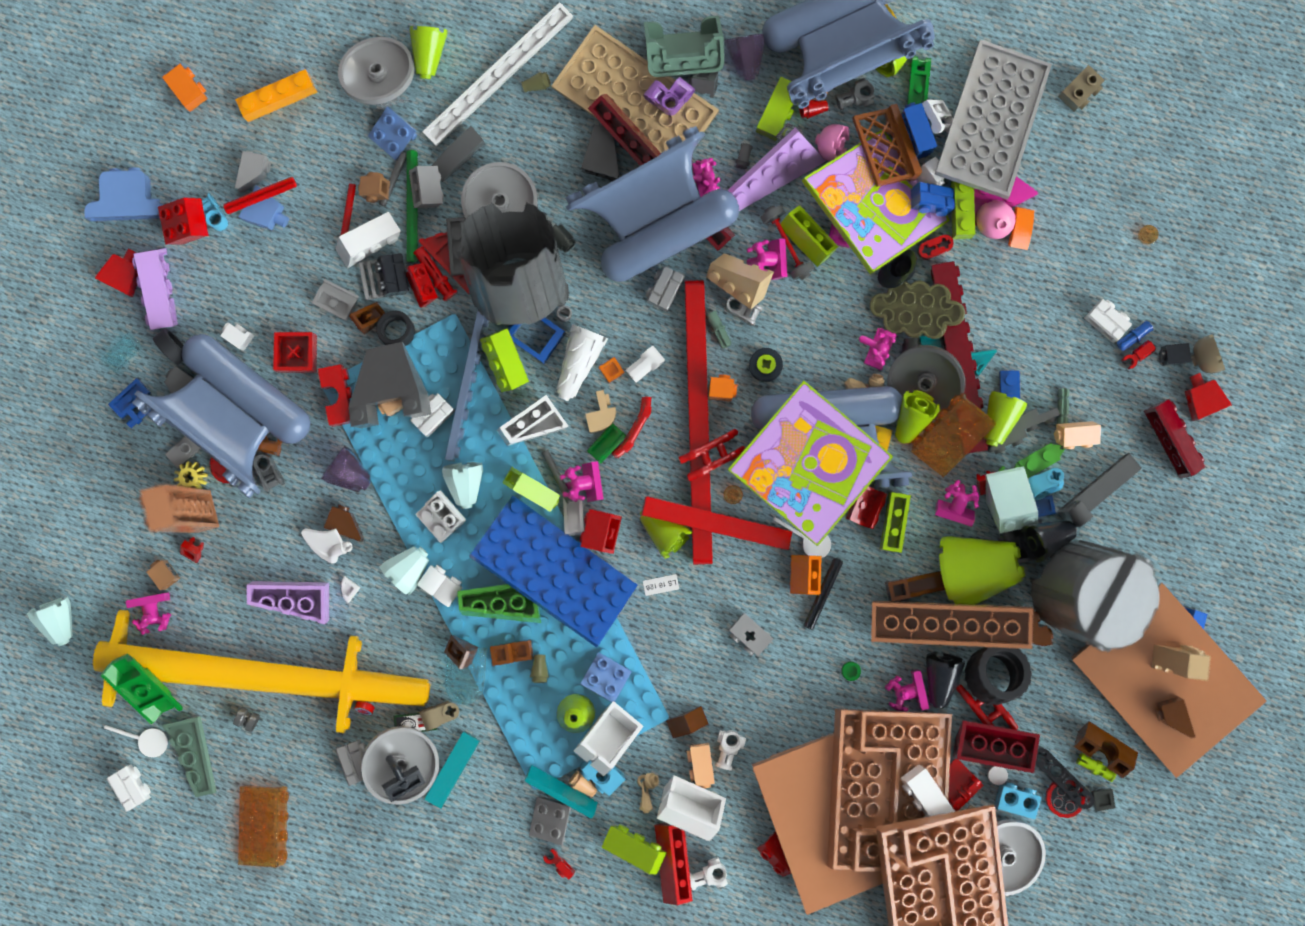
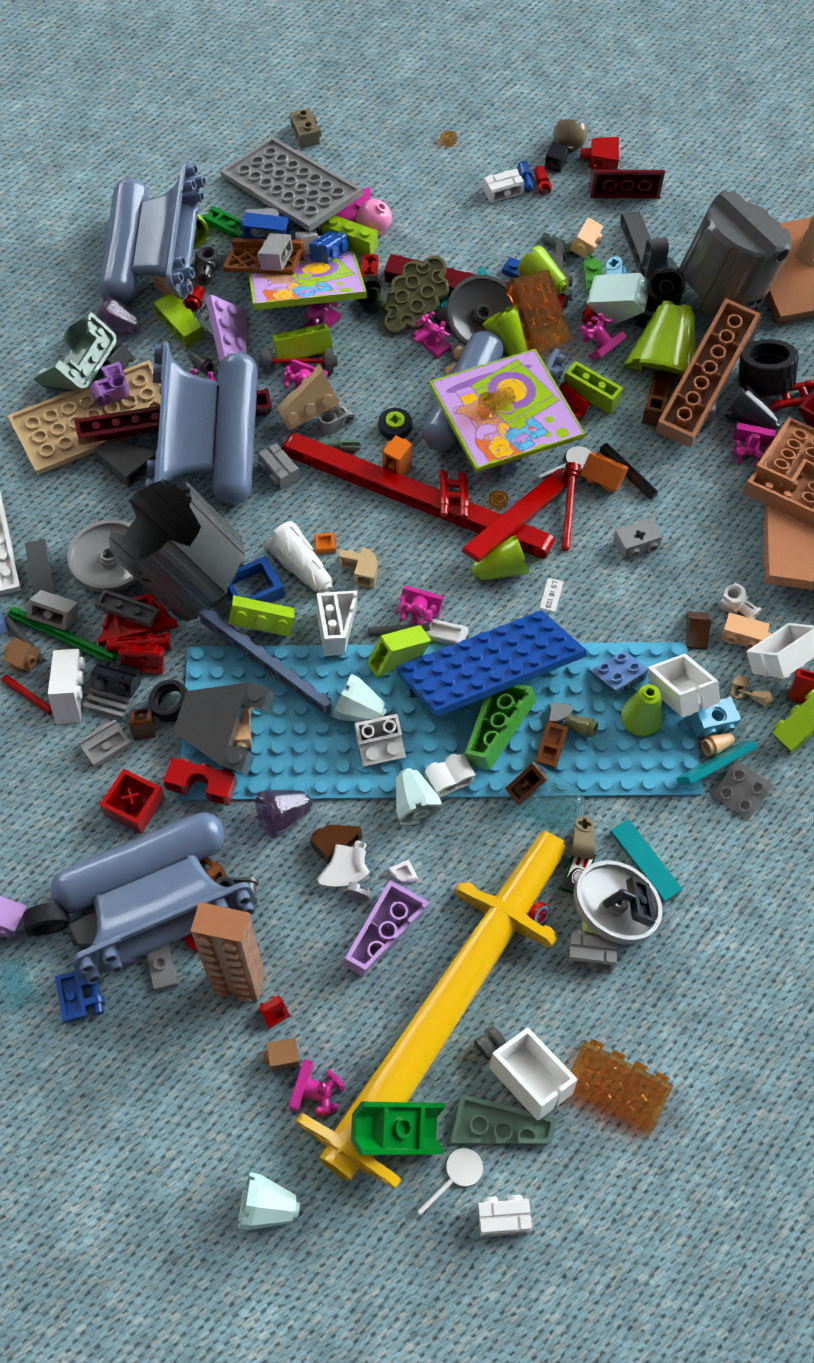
camera: 65 degrees left, 25 degrees down
(193, 470) = (188, 979): light yellow gear -> none
(232, 762) = (532, 1073): none -> white piece
(236, 335) = (76, 851): white brick -> none
(314, 563) = (355, 891): none -> light grey tile
(440, 412) = (280, 711): white brick -> none
(537, 82) = (24, 481): olive cone -> none
(543, 645) = (559, 712): none -> light grey tile
(563, 867) = (794, 799): red plate -> none
(565, 310) = (250, 554): light grey hinge -> none
(600, 531) = (474, 608): red brick -> none
(606, 443) = (391, 575): green tile -> none
(643, 415) = (401, 551): red piece -> none
(649, 360) = (336, 508): white piece -> none
(788, 547) = (572, 471): none -> red piece
(807, 453) = (491, 402): none -> clear yellow piece
(832, 141) = (234, 293): bright pink cylinder -> none
(851, 671) = (711, 481): green tile -> none
(889, 157) = (275, 252): none -> light grey brick
(1022, 229) = (399, 211): orange slope -> none

